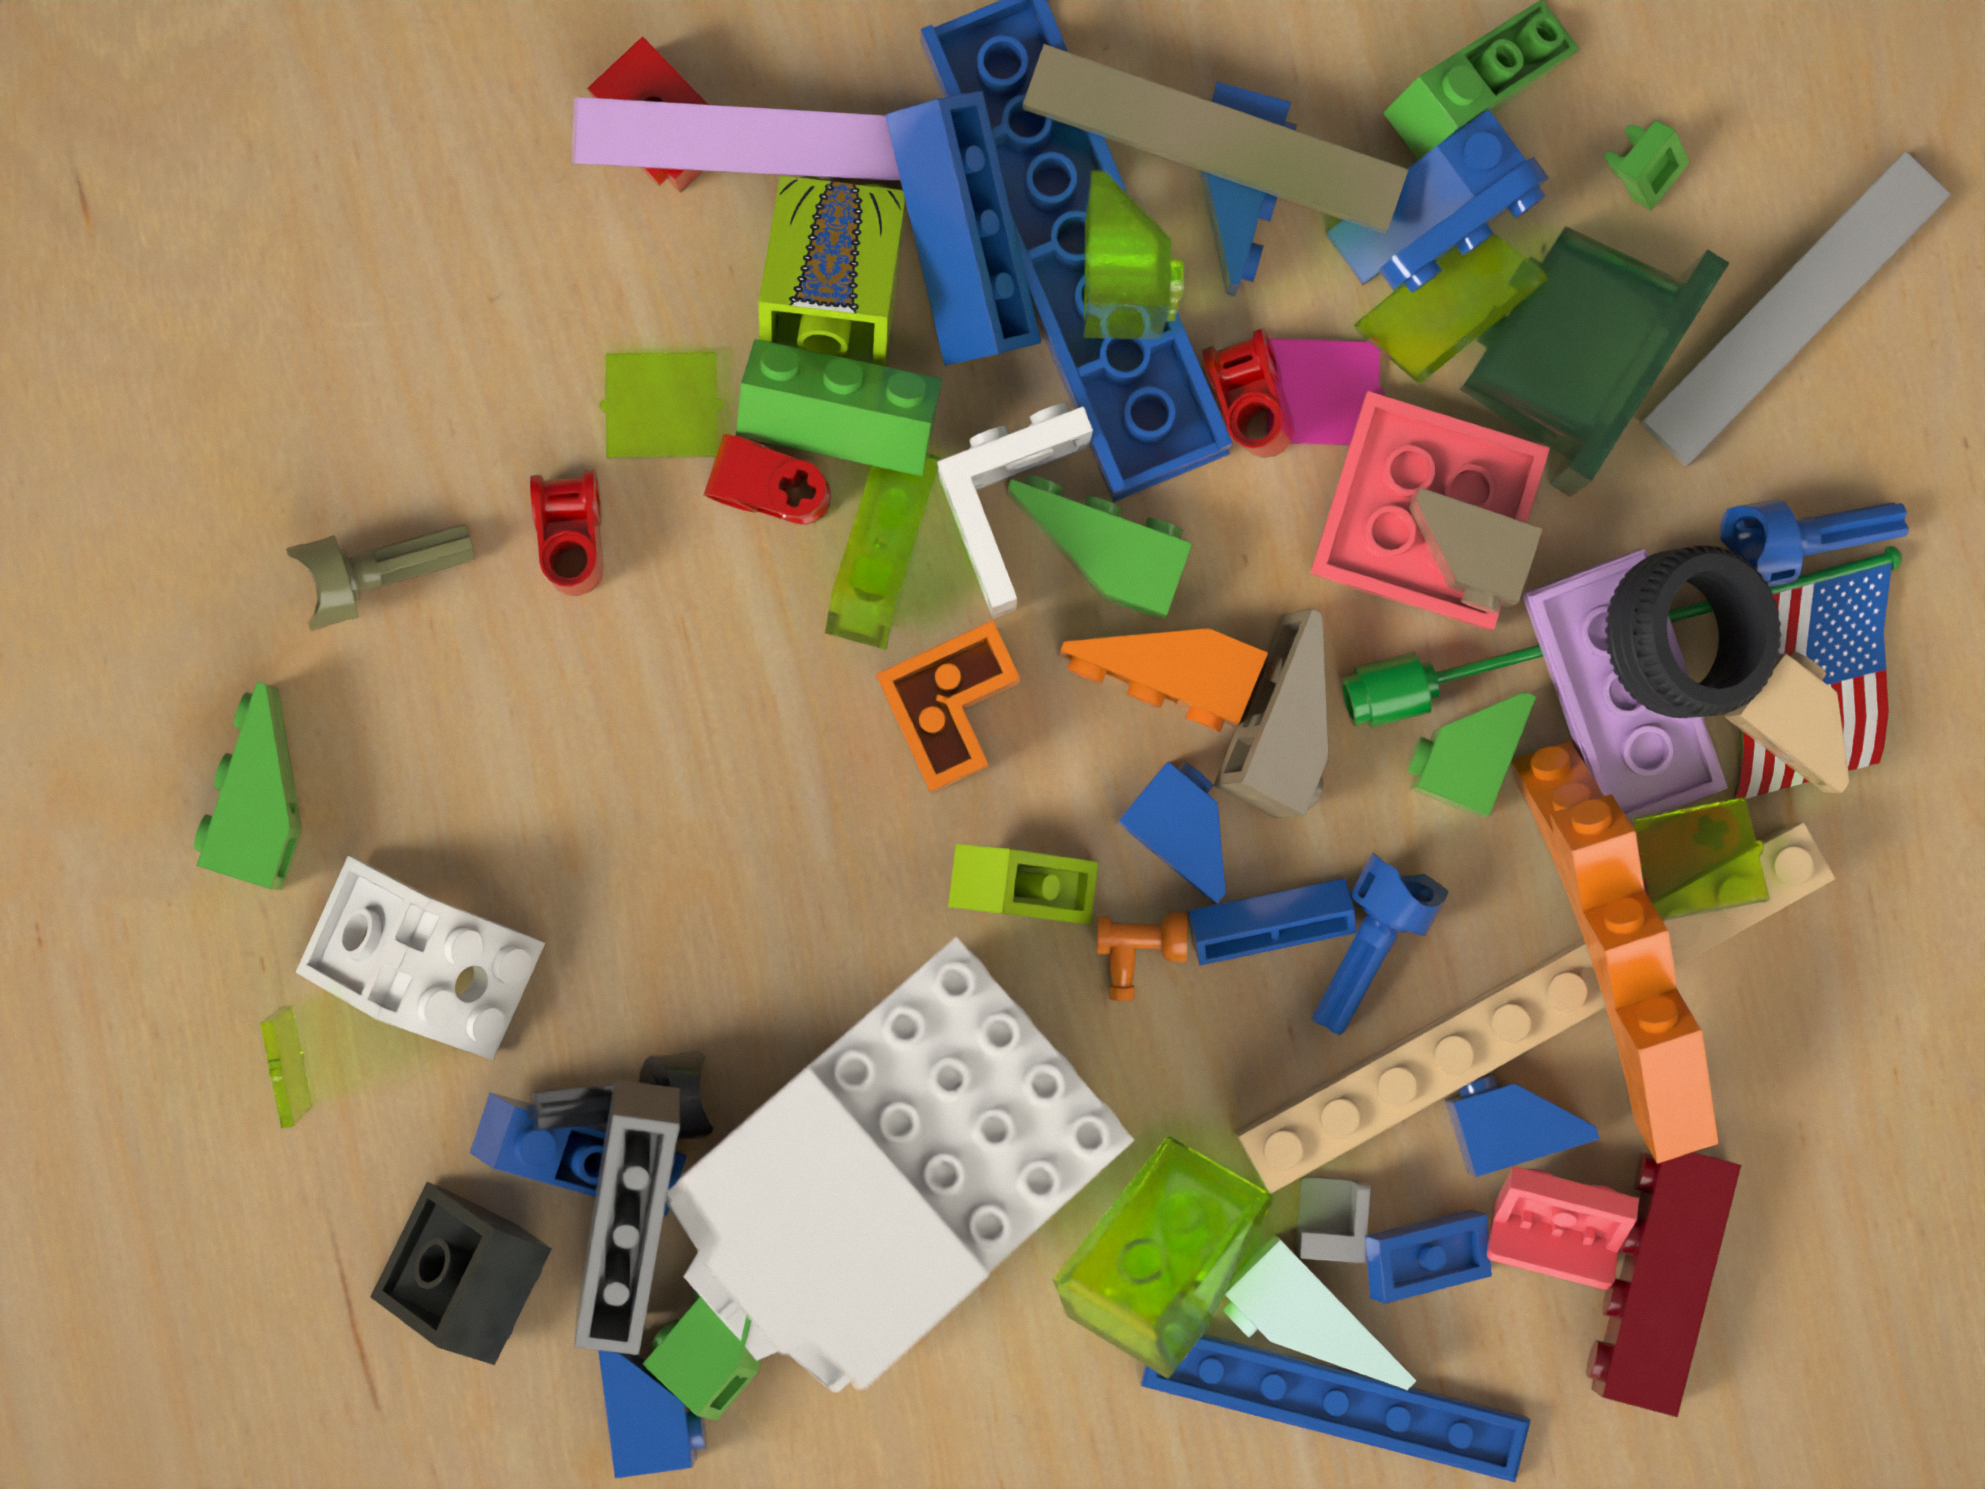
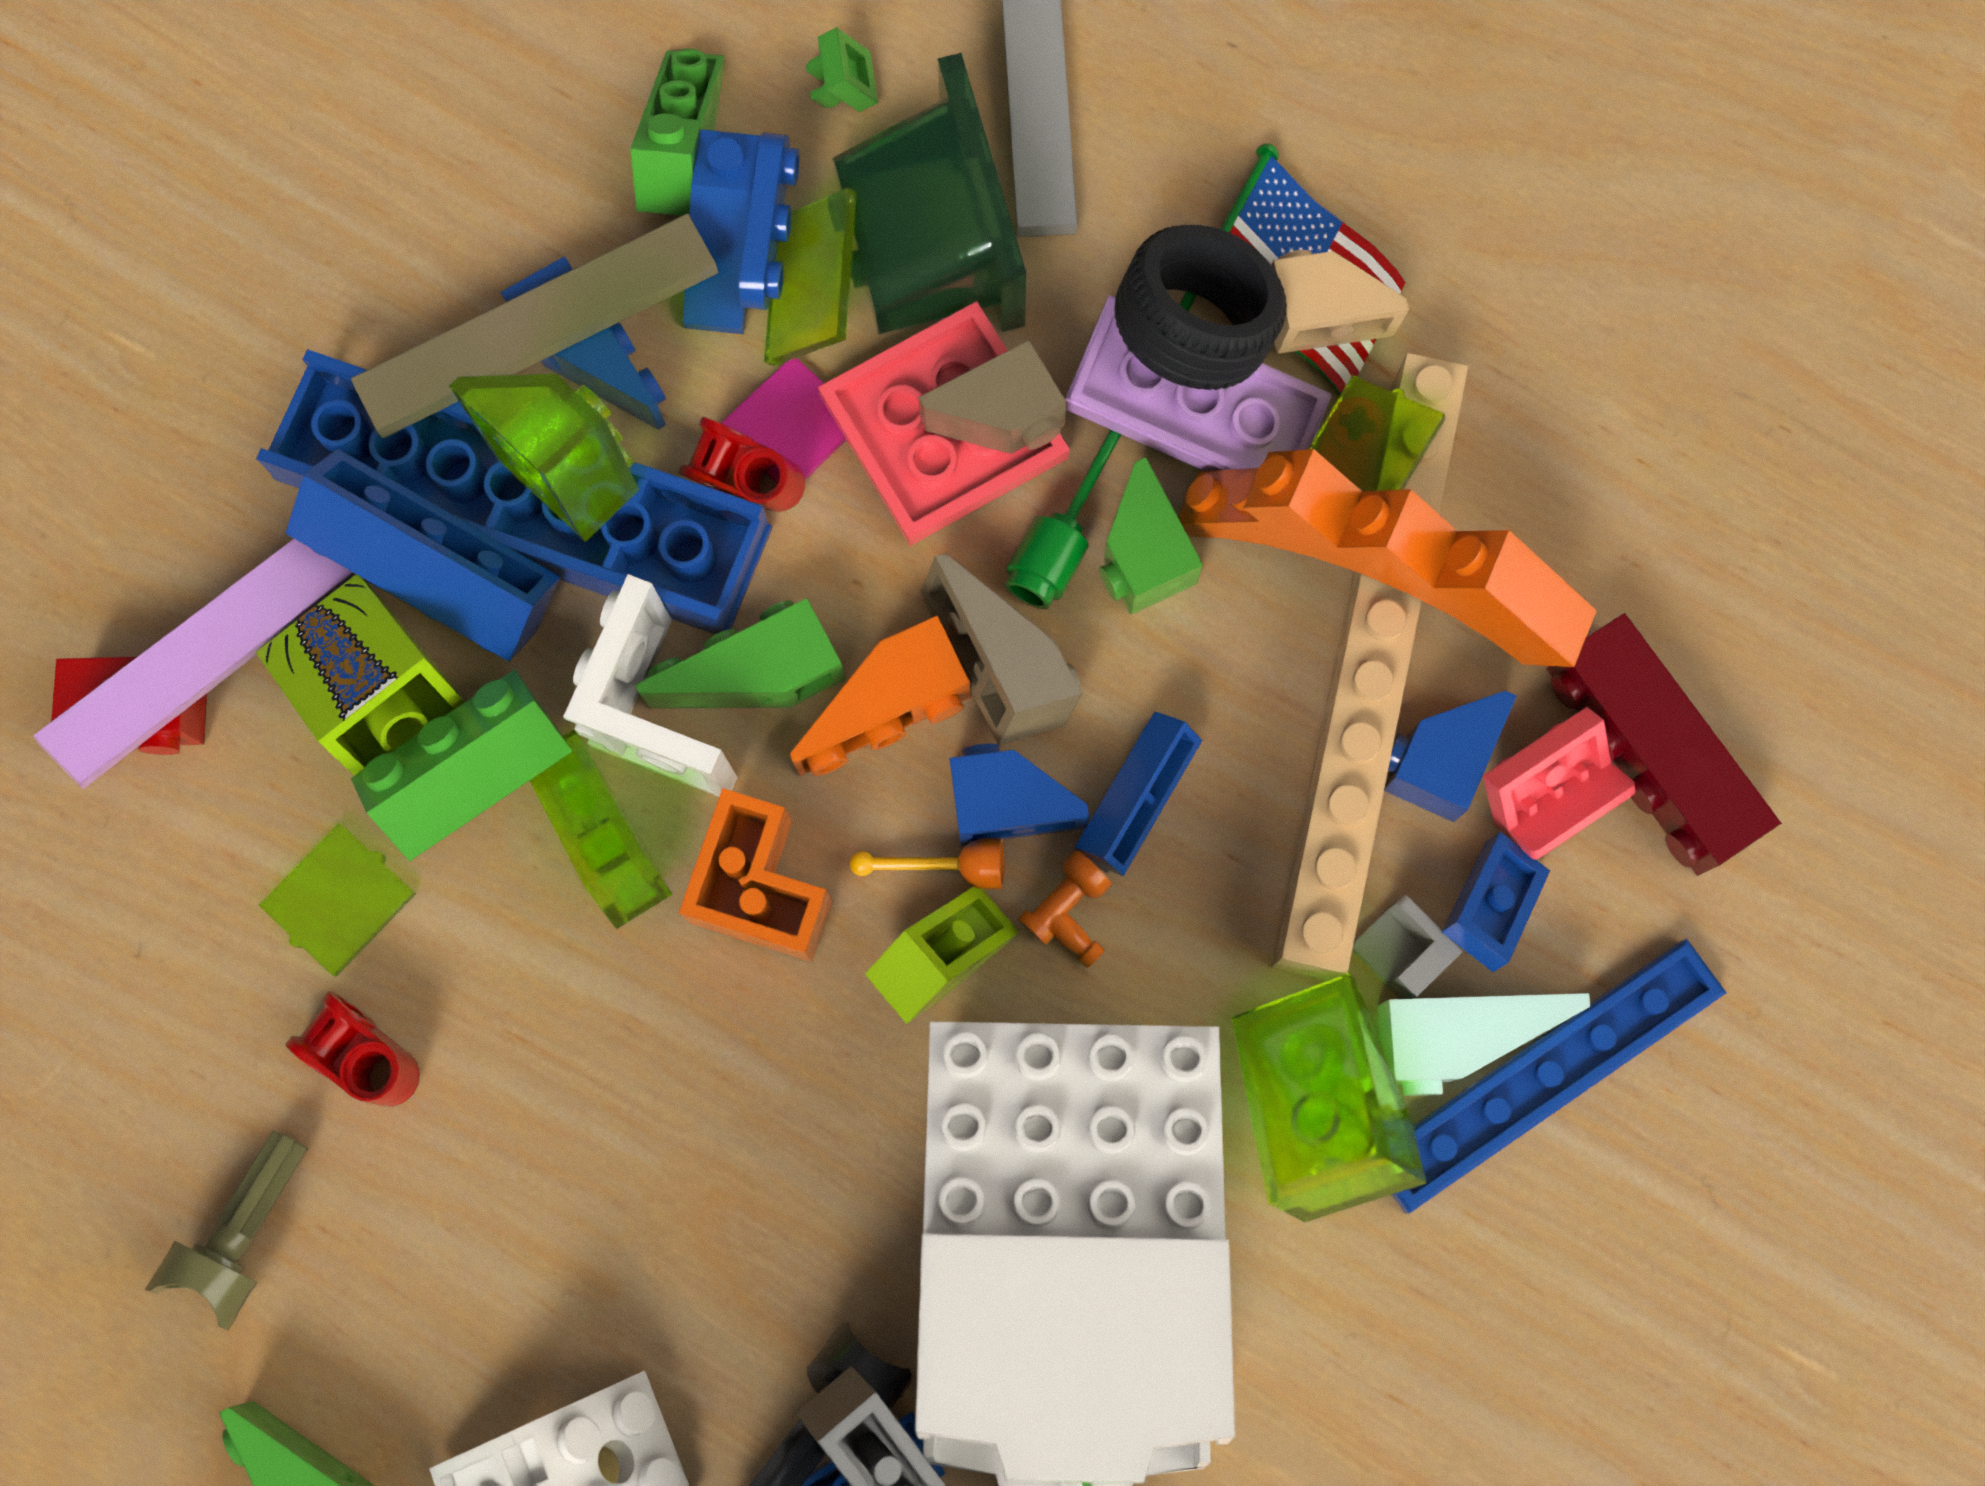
camera: 45 degrees left, 10 degrees down
(756, 481) = (457, 873): red piece -> none
(1114, 849) = (979, 863): none -> hinge
(1393, 906) = (1205, 693): blue piece -> none
(1777, 541) = (1194, 198): blue piece -> none

